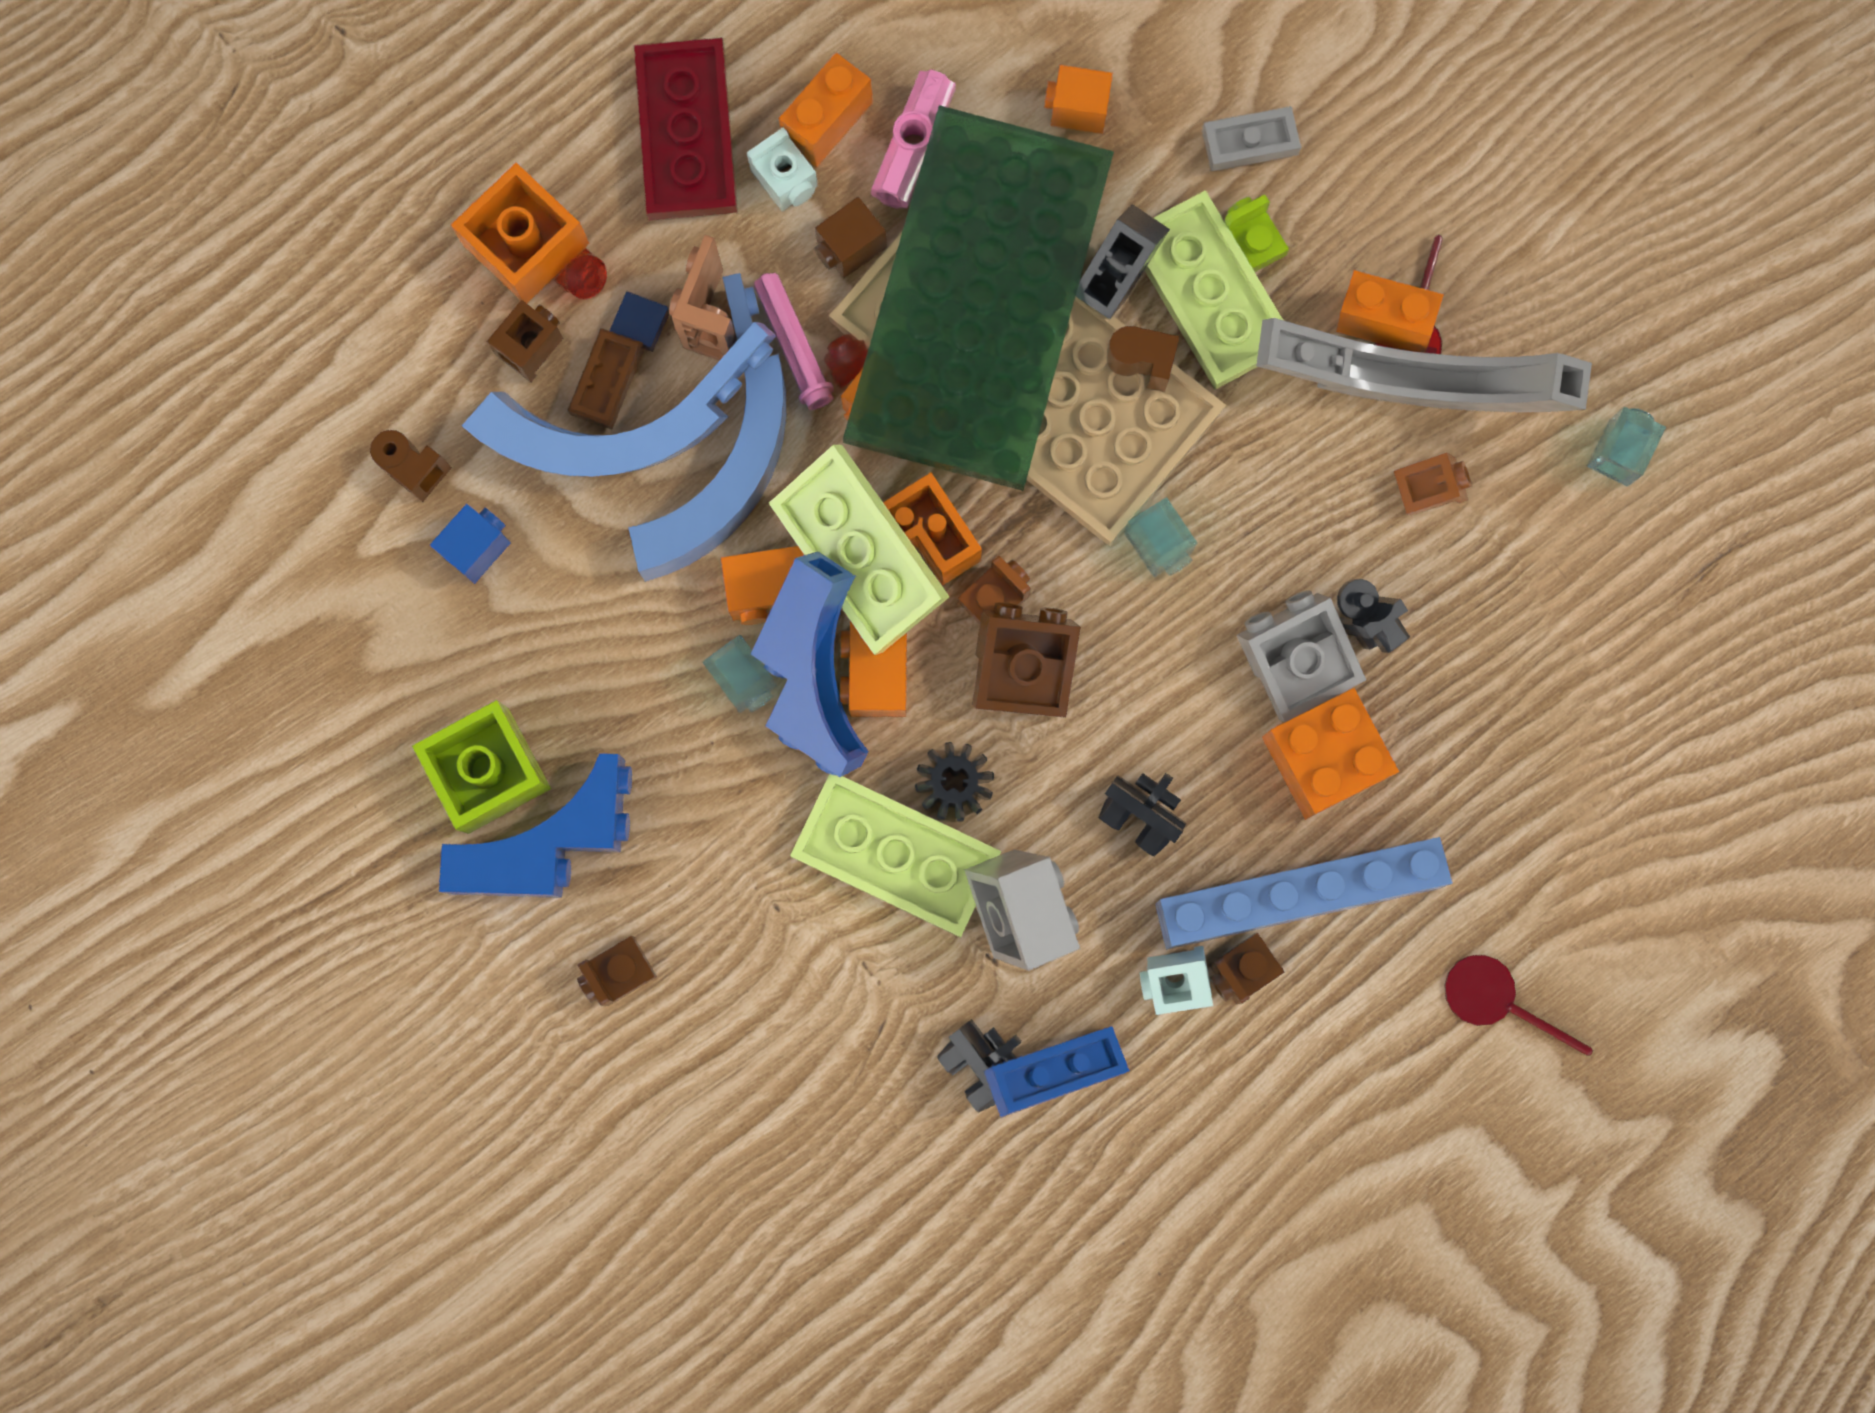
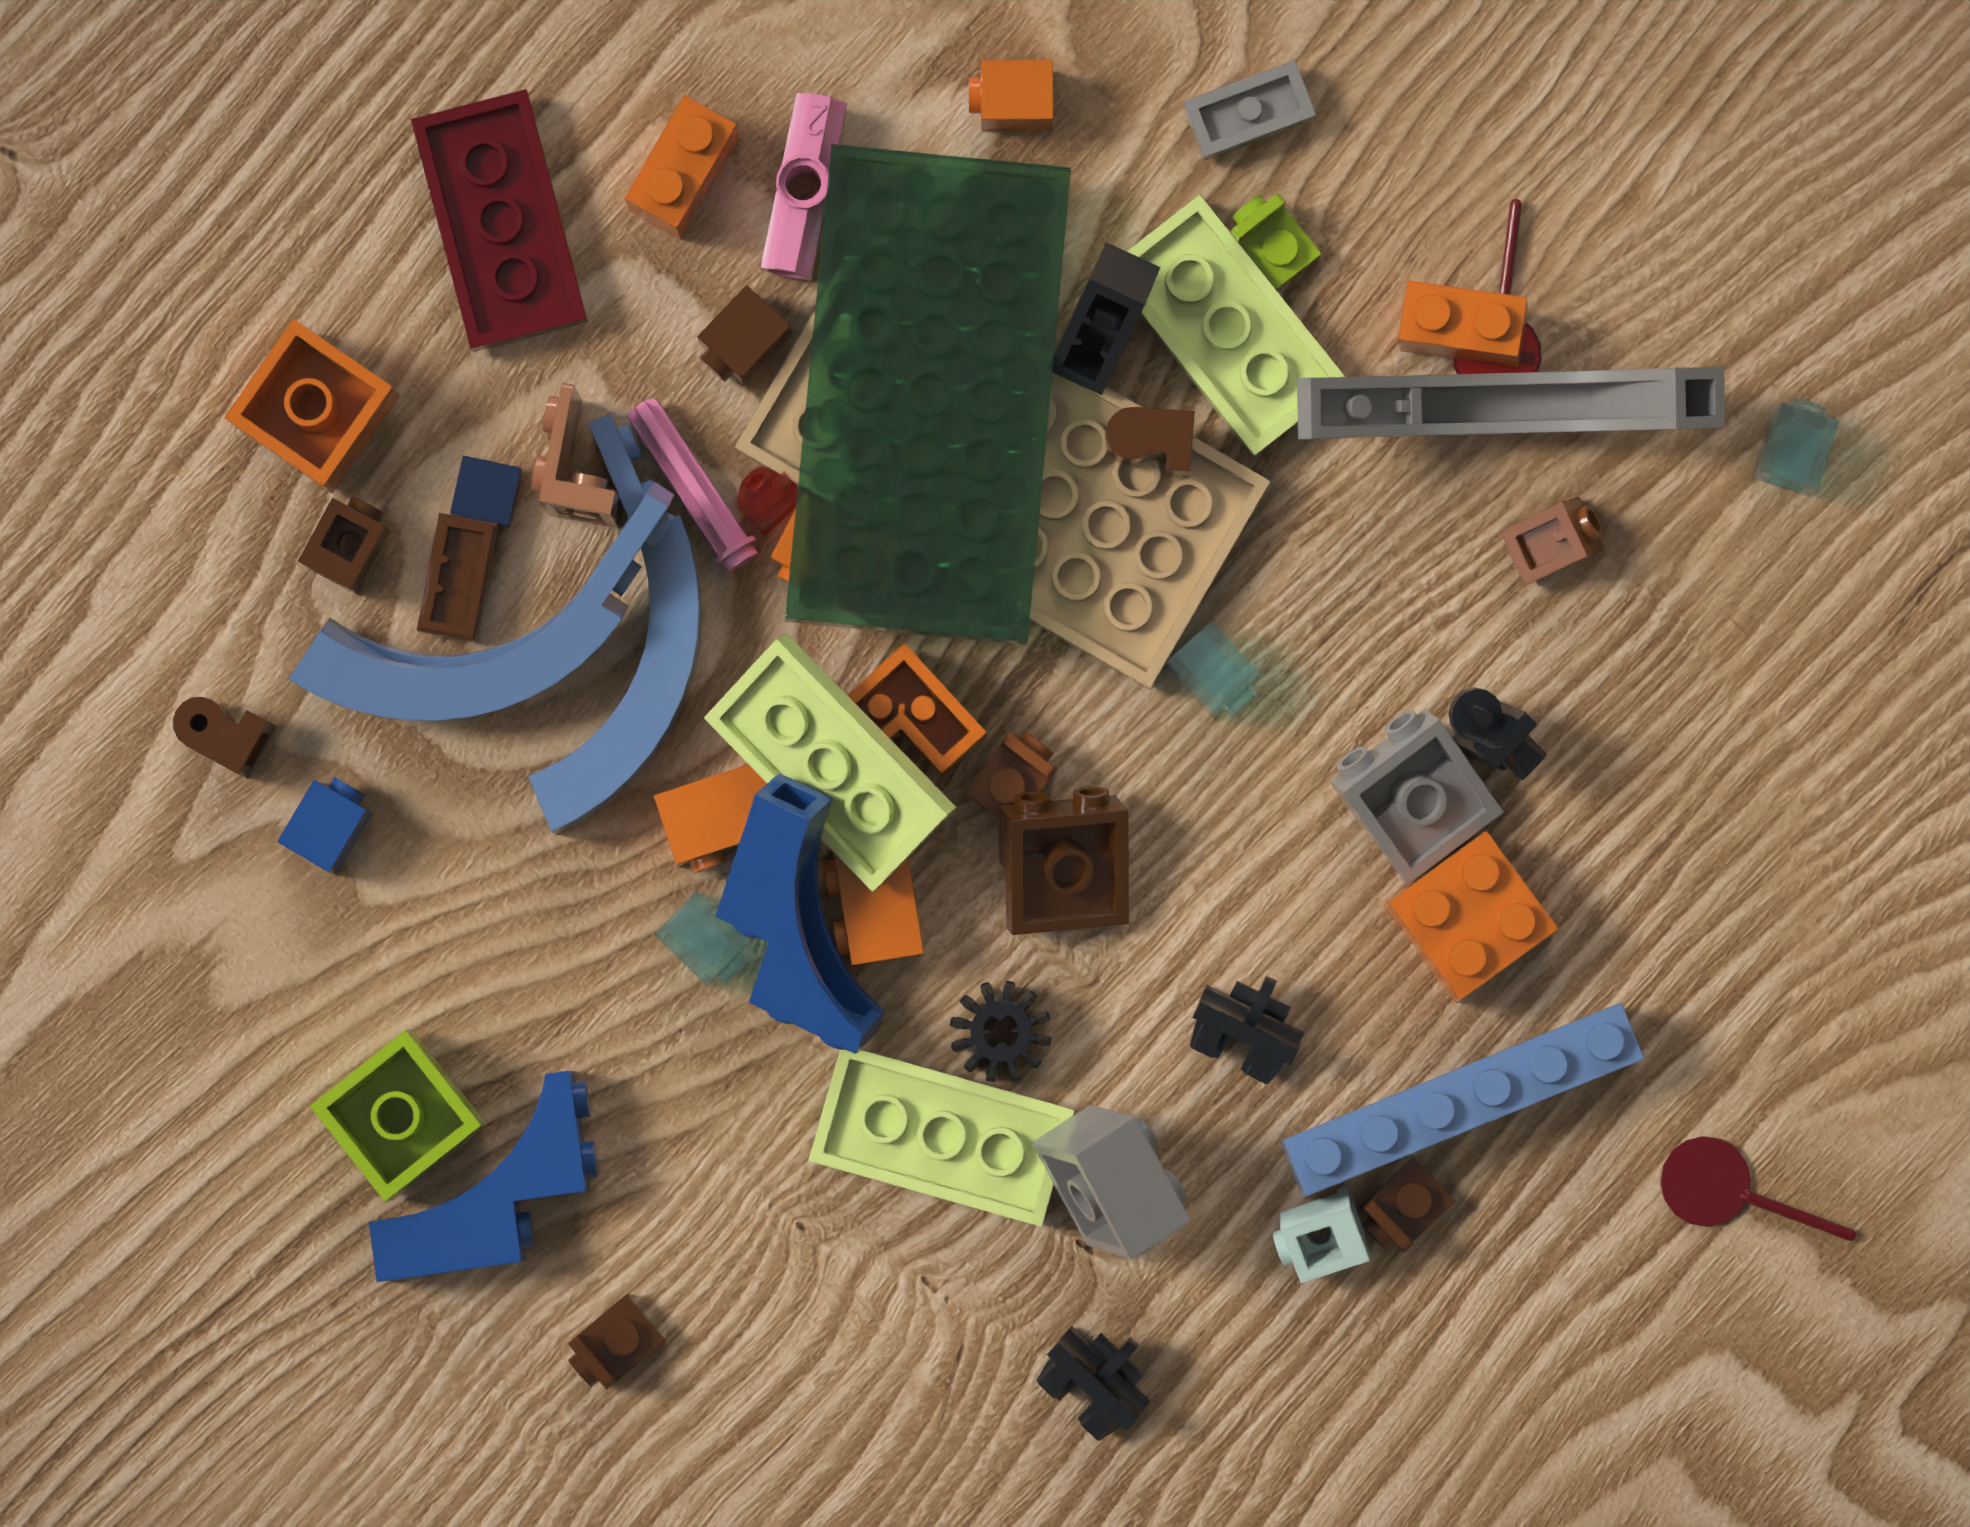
camera: 10 degrees left, 5 degrees up
(583, 276) = (401, 442): clear red plate -> none
(774, 155) = (614, 254): light aqua brick -> none
(1056, 1071) = (1188, 1374): blue plate -> none

